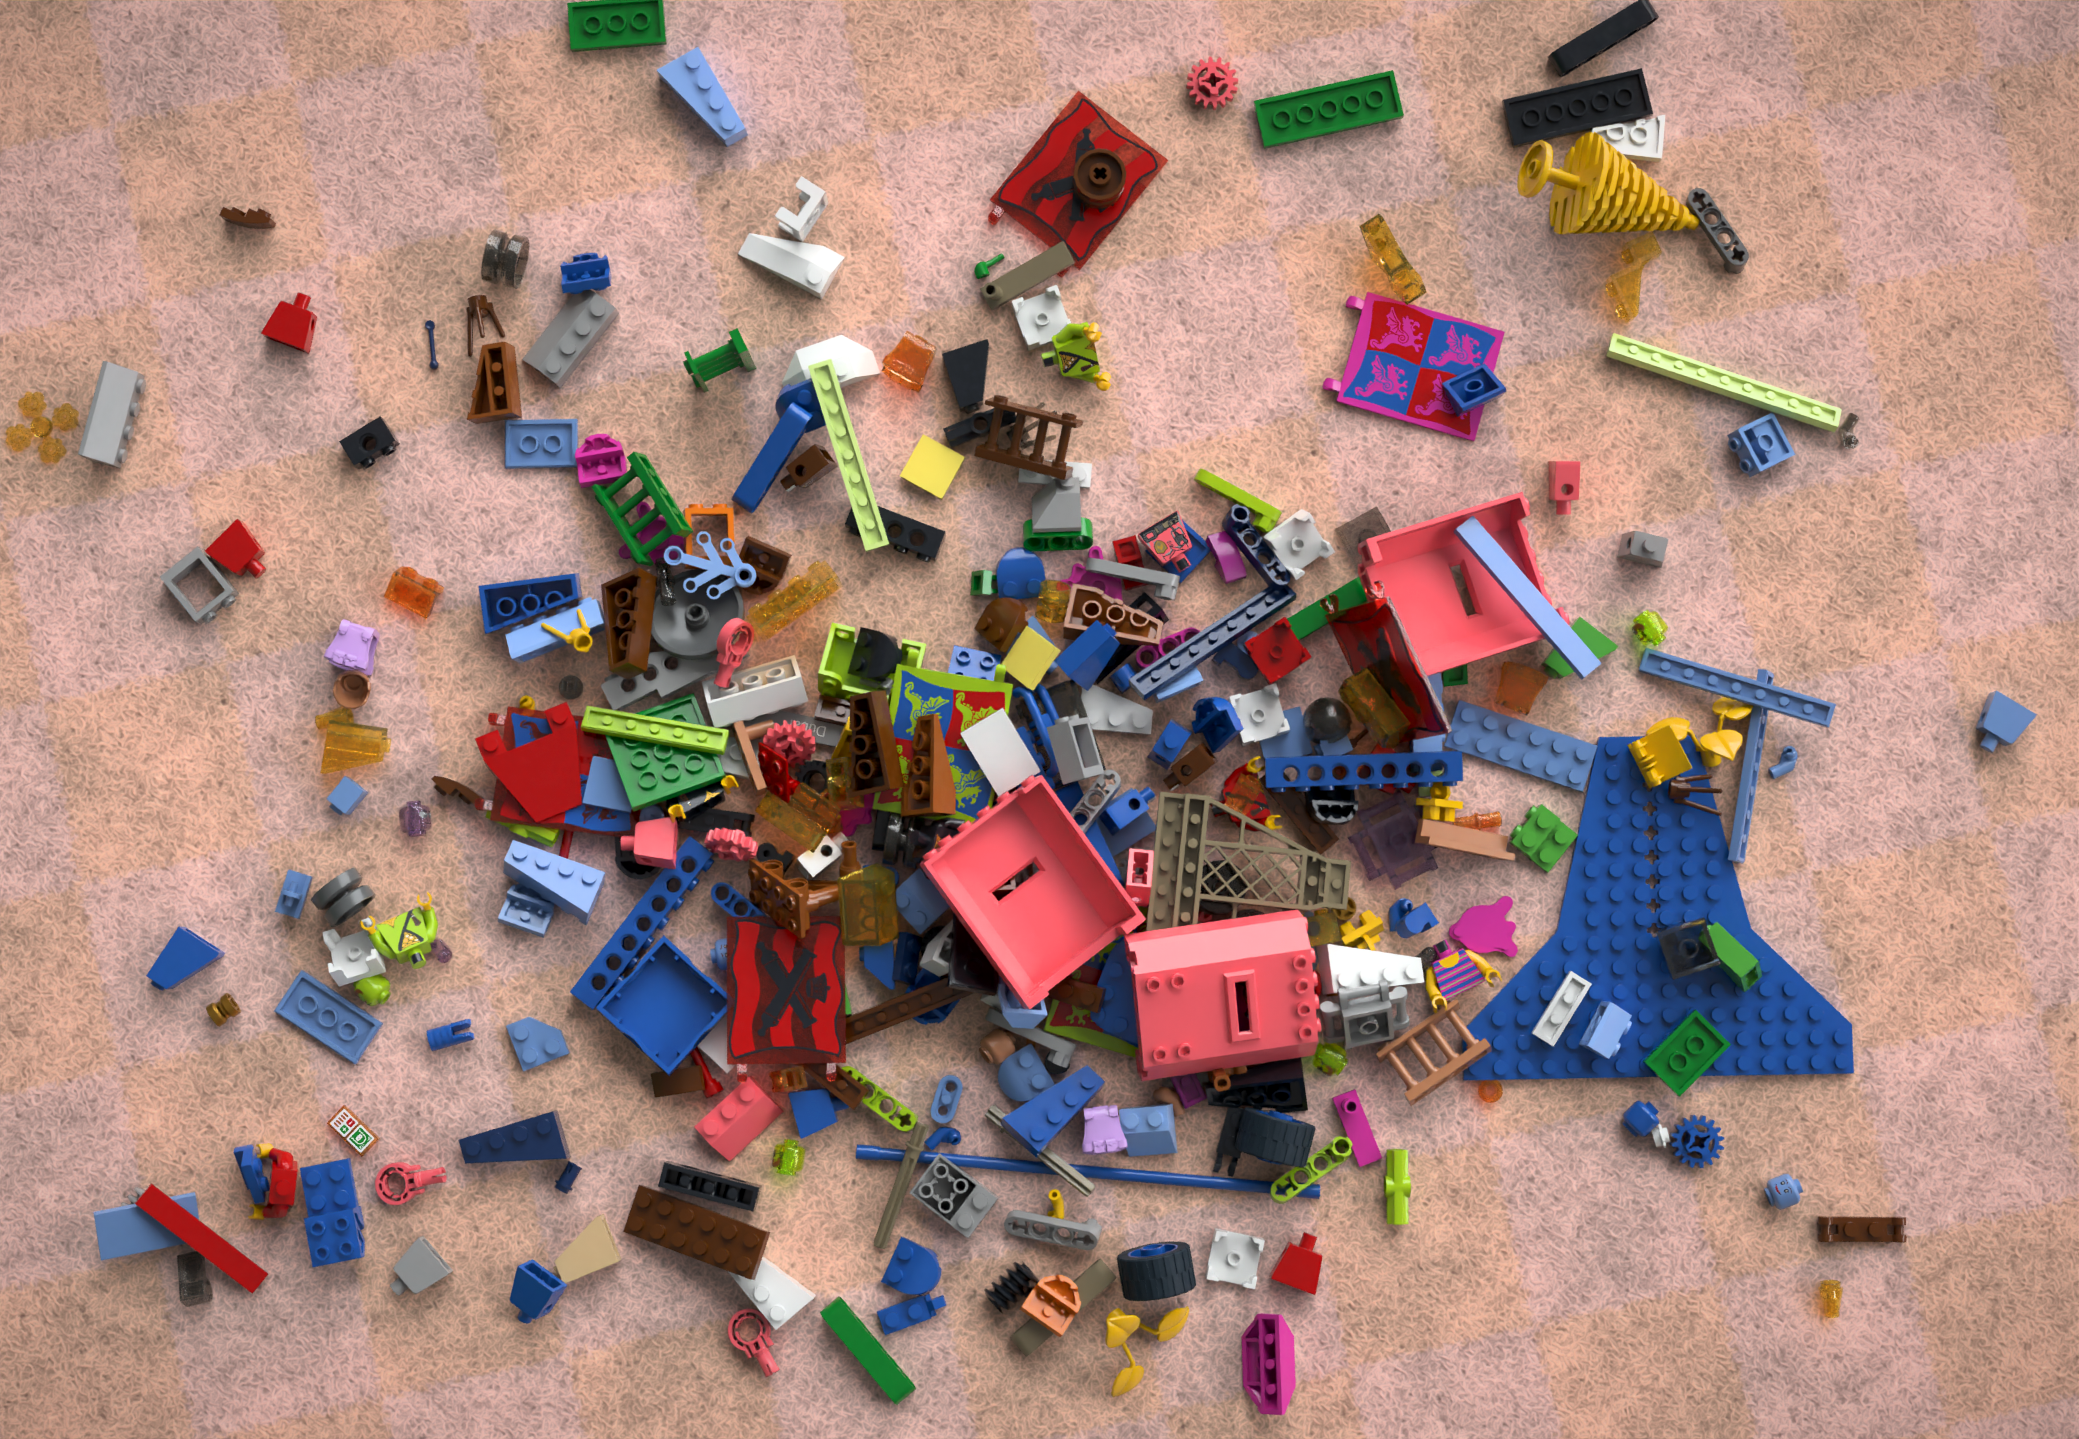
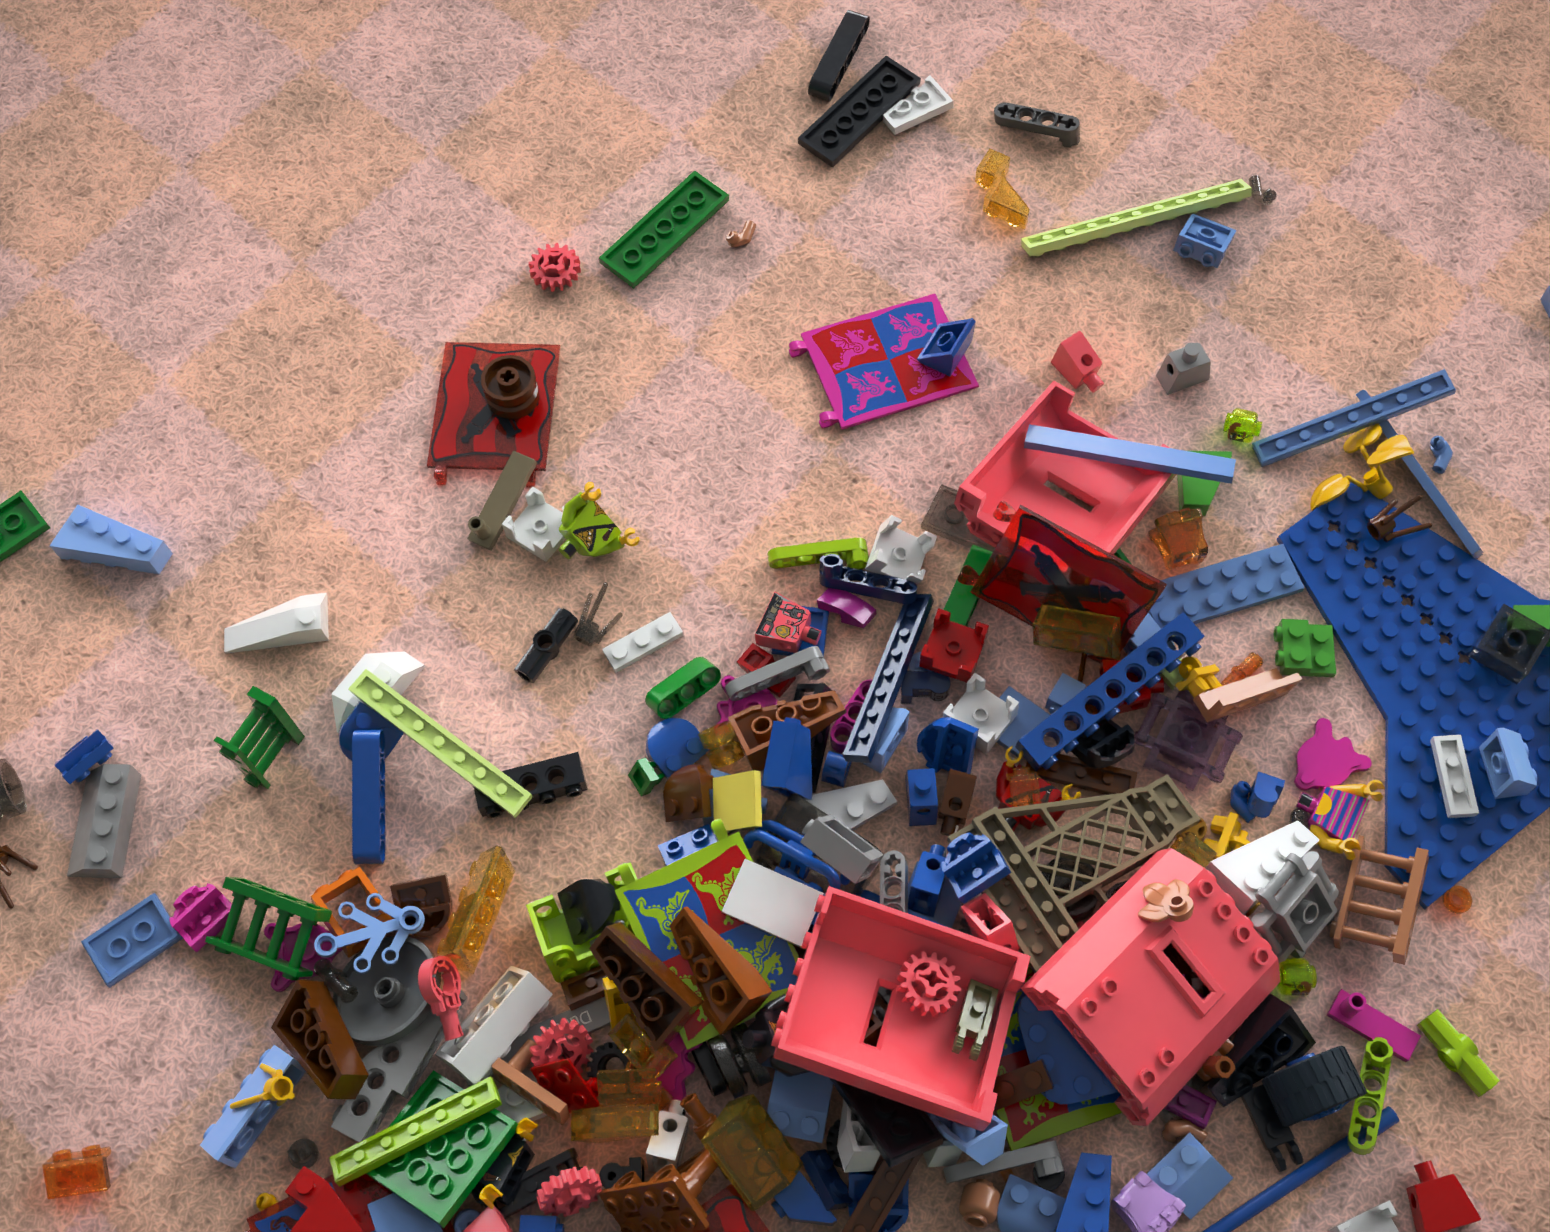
camera: 30 degrees left, 20 degrees down
(497, 385) = (52, 914): dark orange wedge -> none
(522, 599) = (199, 1097): blue wedge -> none
(800, 225) = (268, 575): white panel -> none
(817, 464) = (410, 783): reddish brown torso -> none
(909, 361) = (443, 634): clear orange piece -> none
(932, 467) = (527, 709): light yellow tile -> none
(968, 374) = (504, 611): black slope -> none
(981, 268) = (458, 523): green hand -> none
(1013, 455) = (617, 635): reddish brown fence -> none
(1056, 893) = (924, 985): none -> coral gear
(1057, 506) = (665, 661): light grey slope -> none
(1080, 930) = (975, 1017): none -> olive hinge
(1159, 827) = (973, 865): none -> blue slope
(1263, 950) = (1167, 902): none -> plate
(1326, 720) = (1042, 676): clear smoke cylinder -> none
(1386, 164) = (738, 239): none -> nougat arm
(1390, 259) = (795, 294): clear yellow arch -> none
(1600, 191) = (923, 140): yellow plant -> none
(1659, 756) = (1343, 510): yellow hinge -> none

